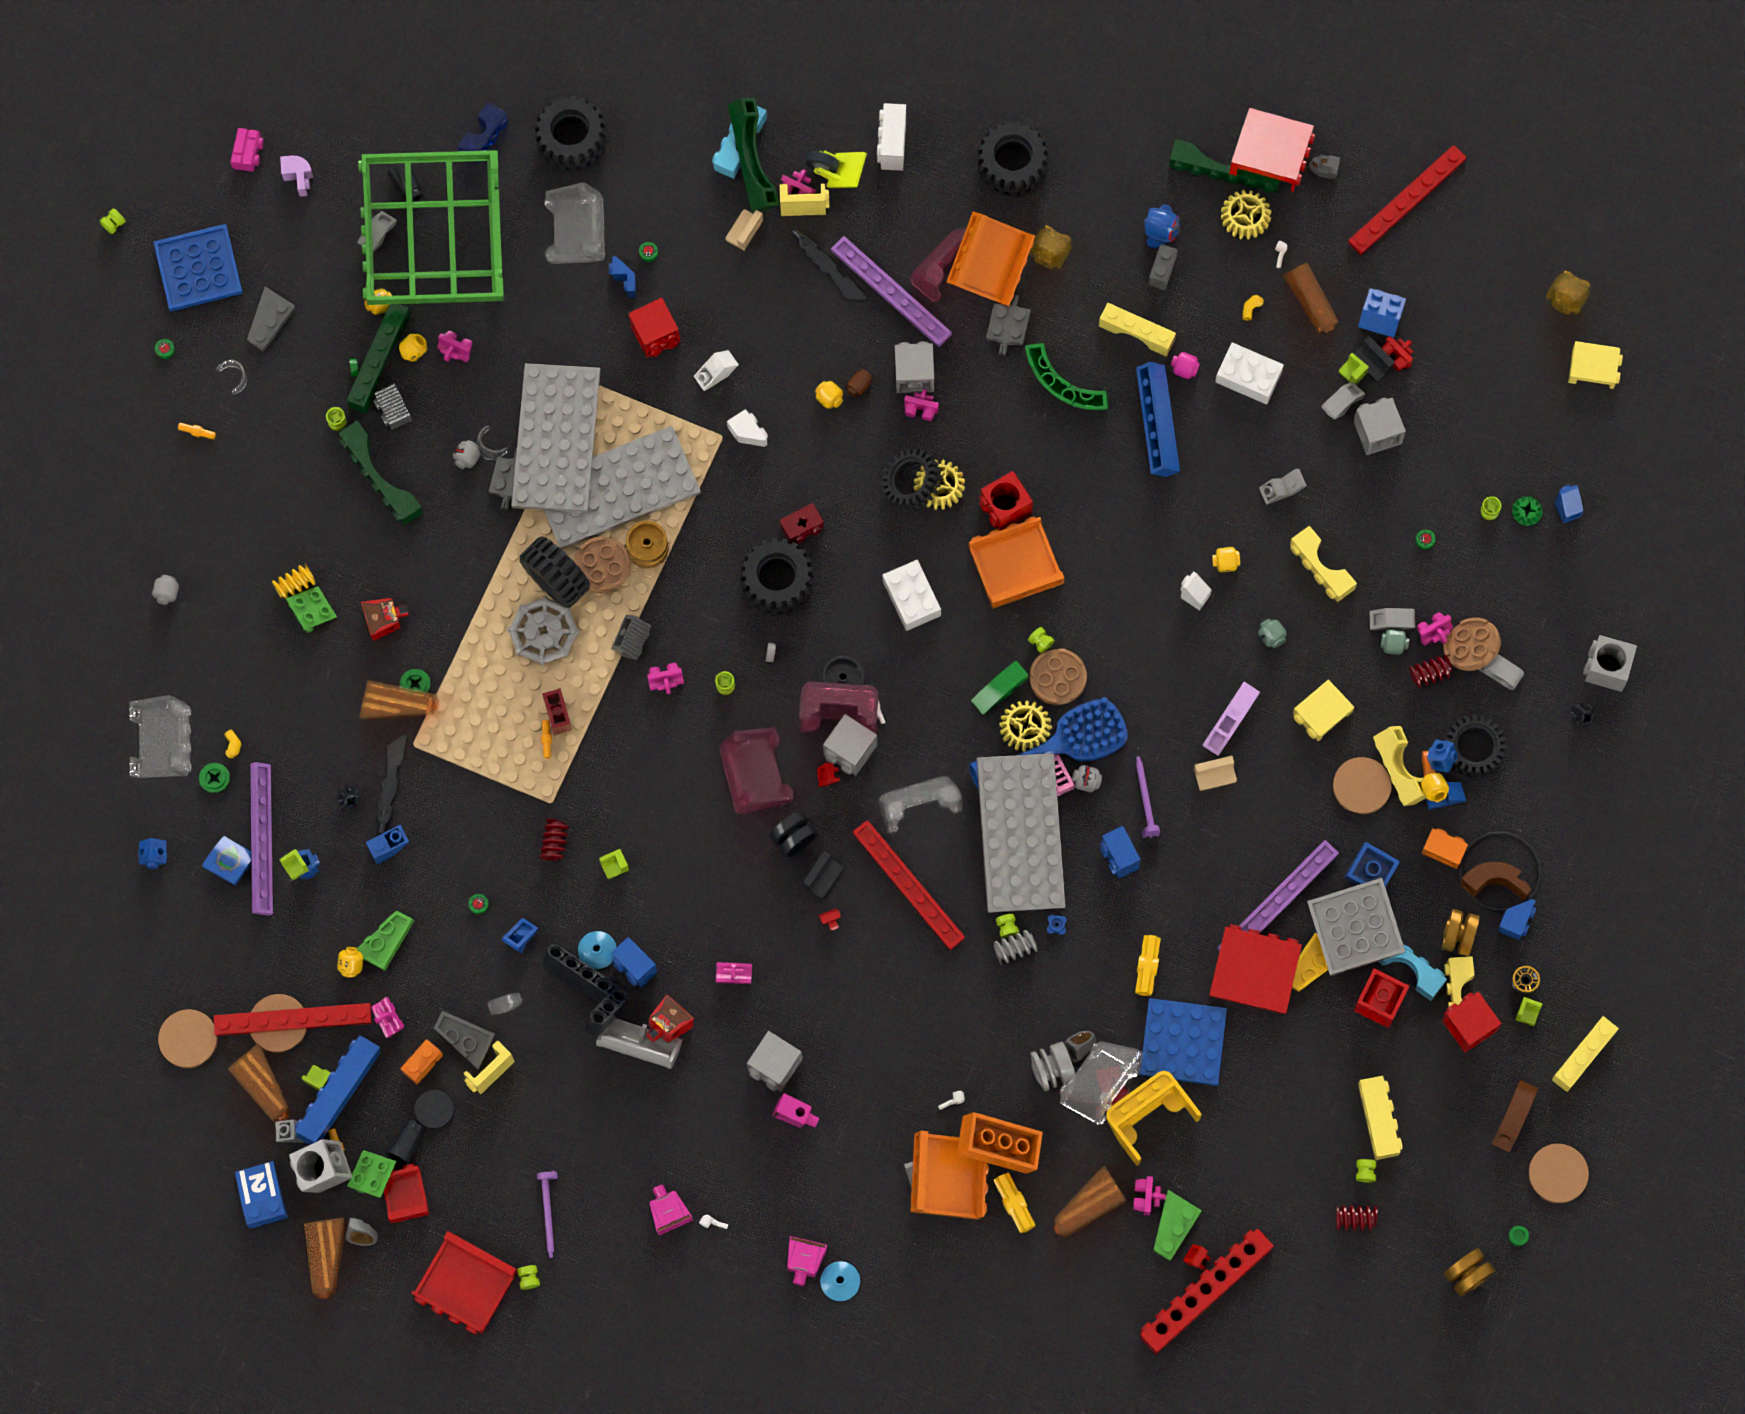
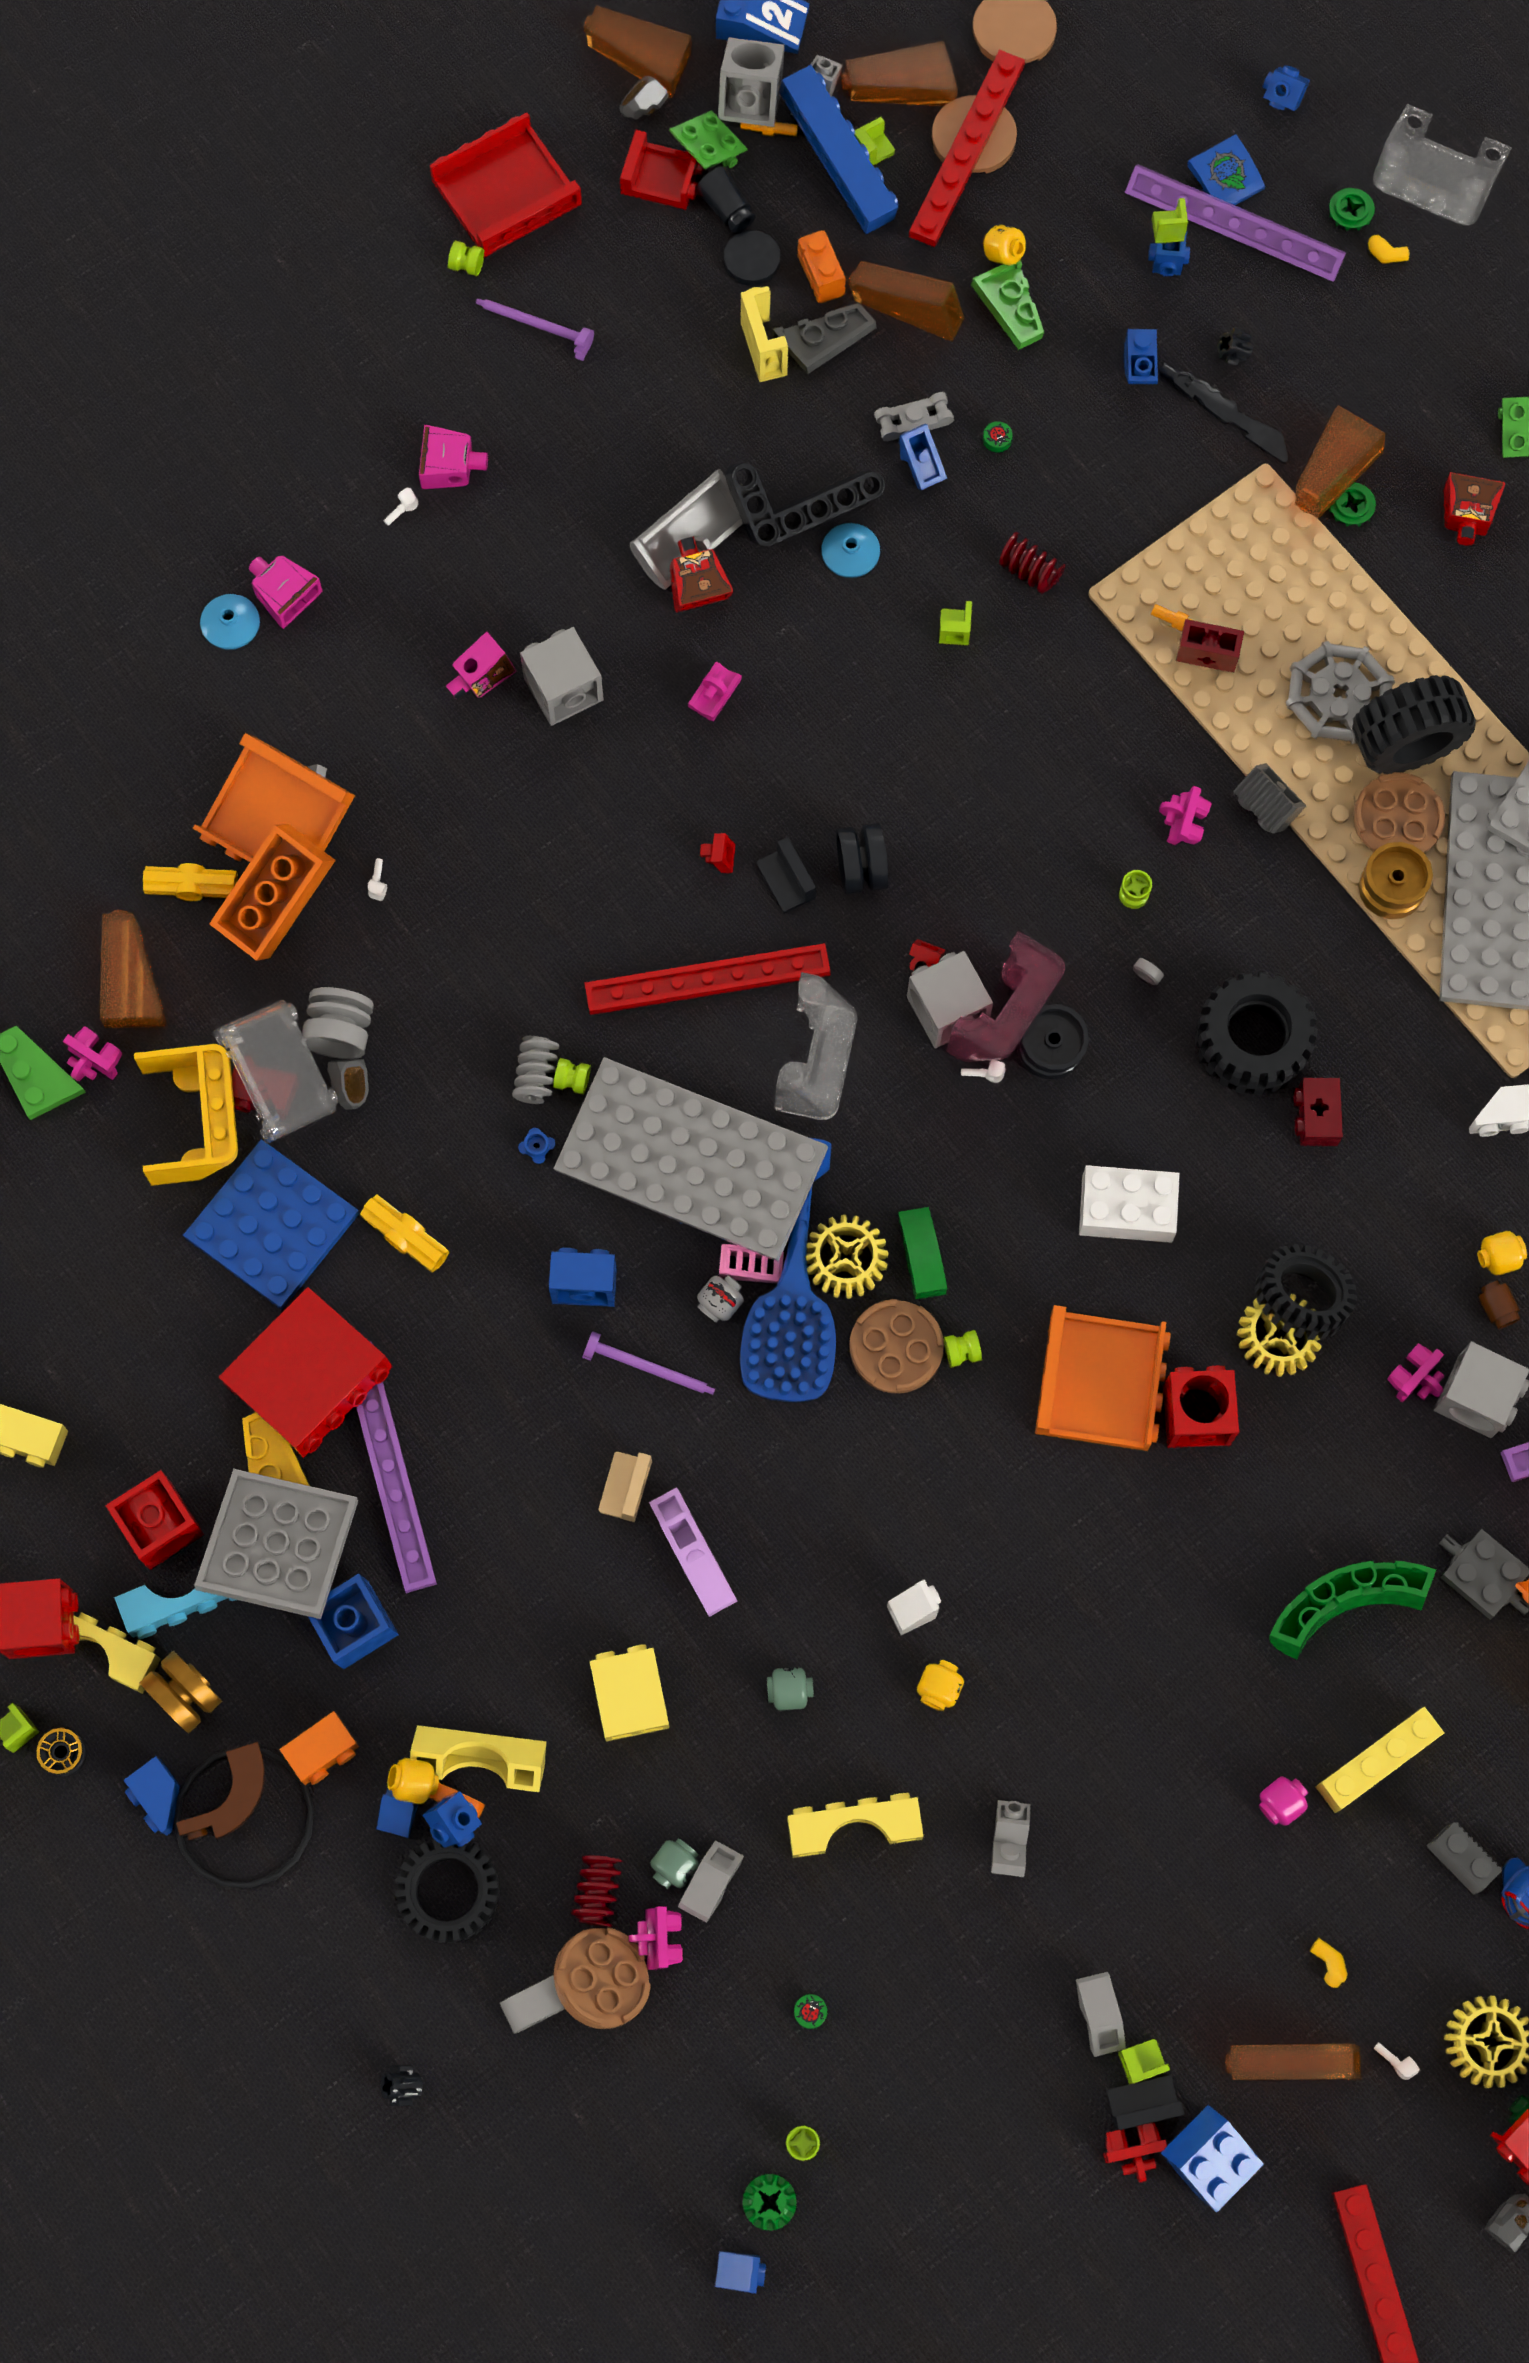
camera: 115 degrees right, 0 degrees up
(387, 1017) = (905, 251): dark pink hips -> none
(417, 1001) = (909, 297): none -> clear orange slope
(491, 958) = (914, 415): none -> light grey plate
(504, 1003) = (845, 395): clear helmet -> none
(634, 963) = (800, 572): blue brick -> none
(754, 770) = (982, 864): clear pink windscreen -> none
(1158, 419) = (1216, 1707): blue brick -> none
(1249, 373) = (1220, 1891): white brick -> none
(1362, 785) = (486, 1686): medium nougat tile -> none
(1379, 425) = (1027, 2041): light grey brick -> none
(1621, 651) = (419, 2173): light grey brick -> none

